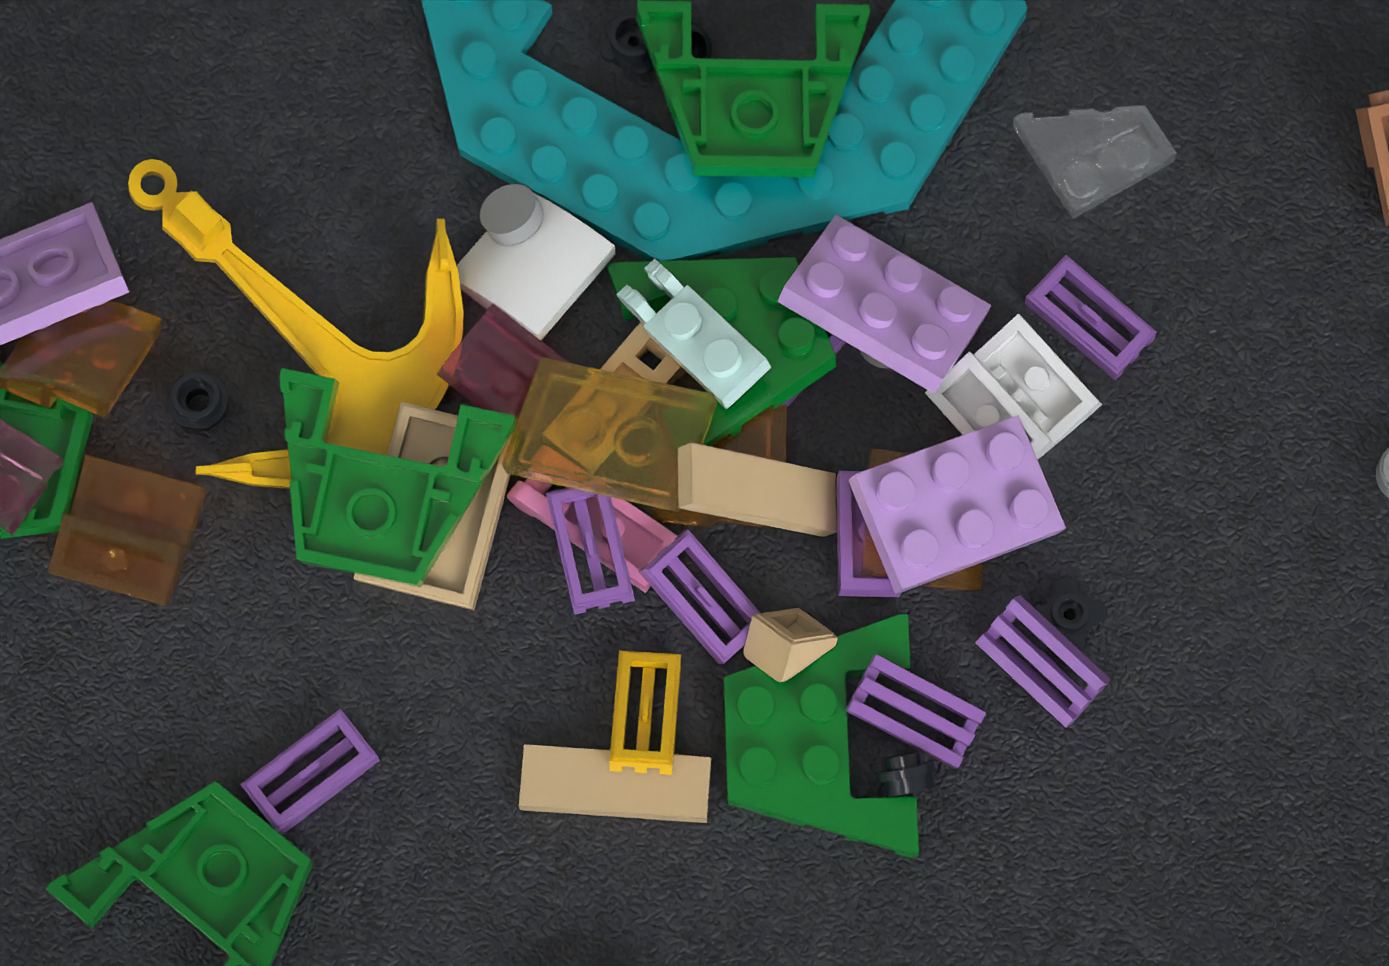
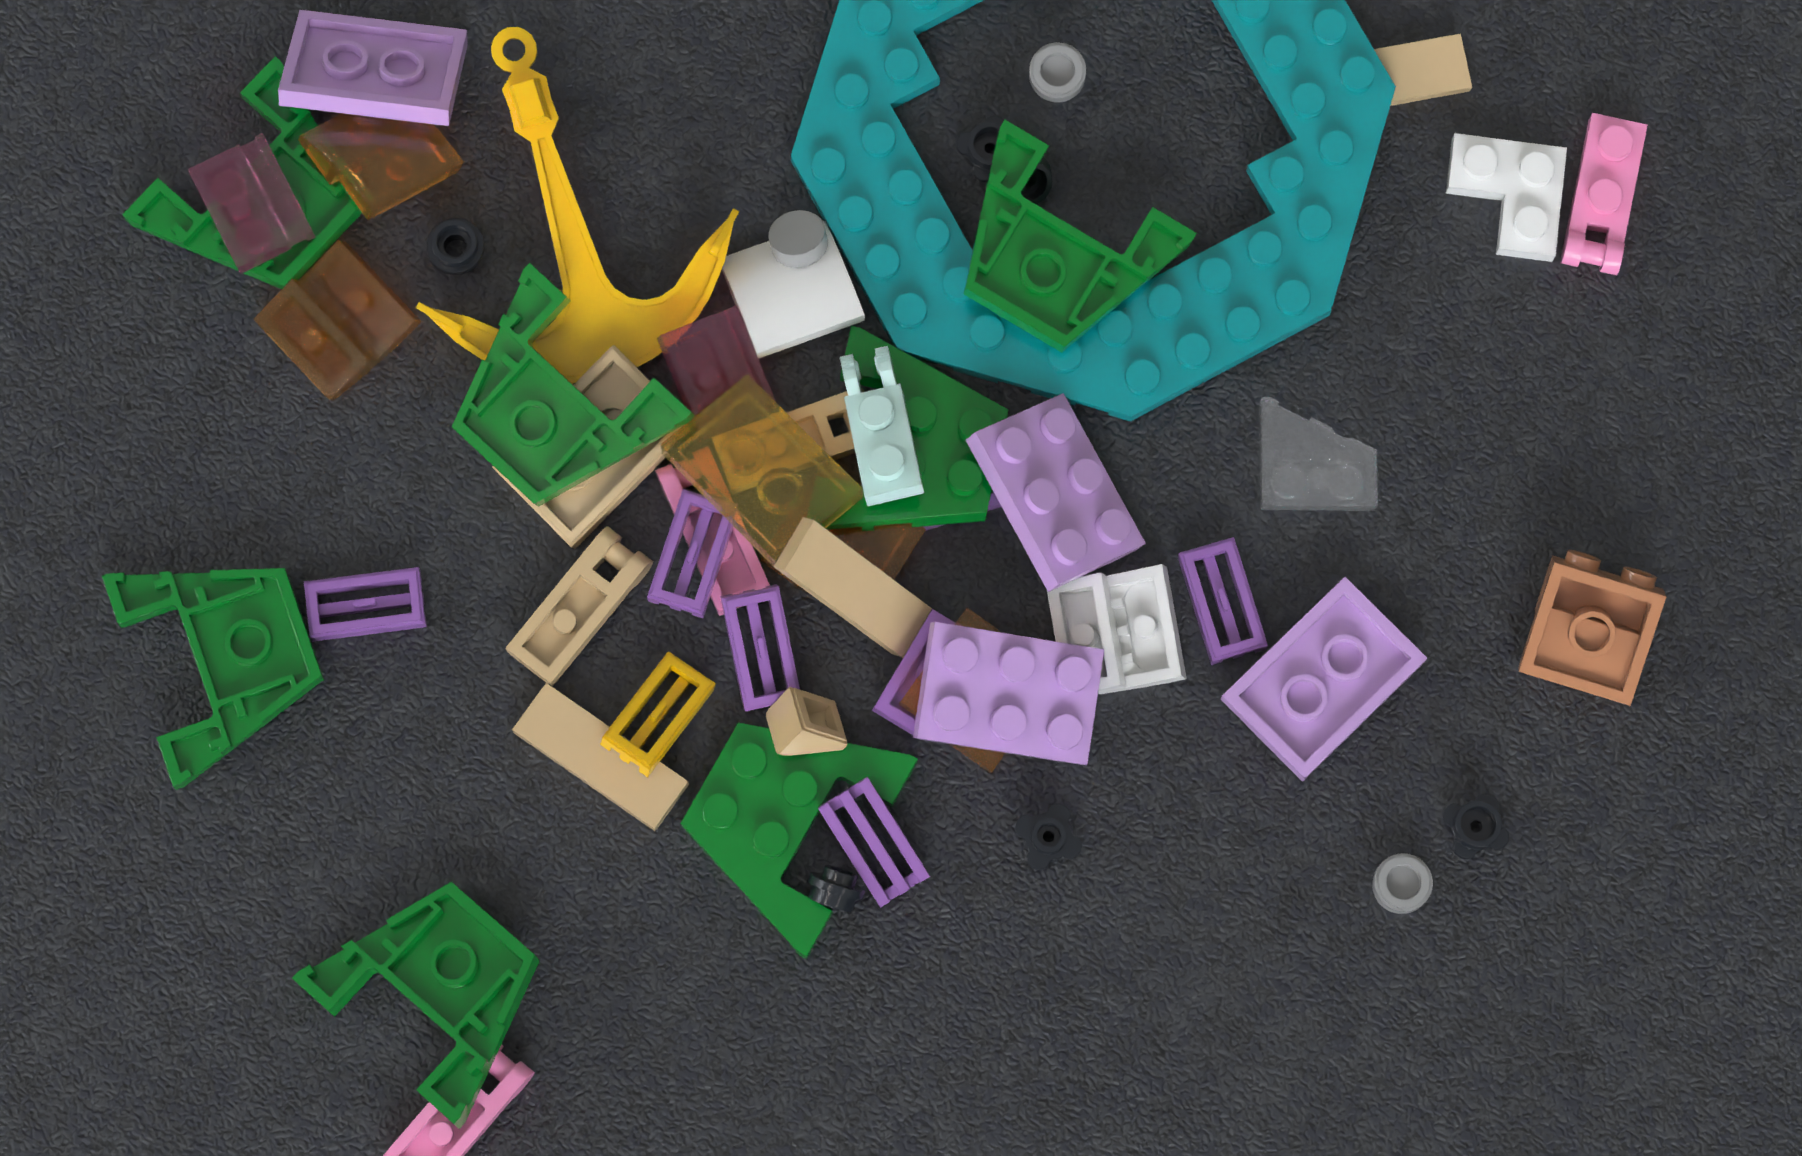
camera: 25 degrees right, 5 degrees up
(511, 660) = (577, 607): none -> tan plate
(1027, 677) = (993, 863): medium lavender tile -> none
(1225, 332) = (1323, 678): none -> lavender plate

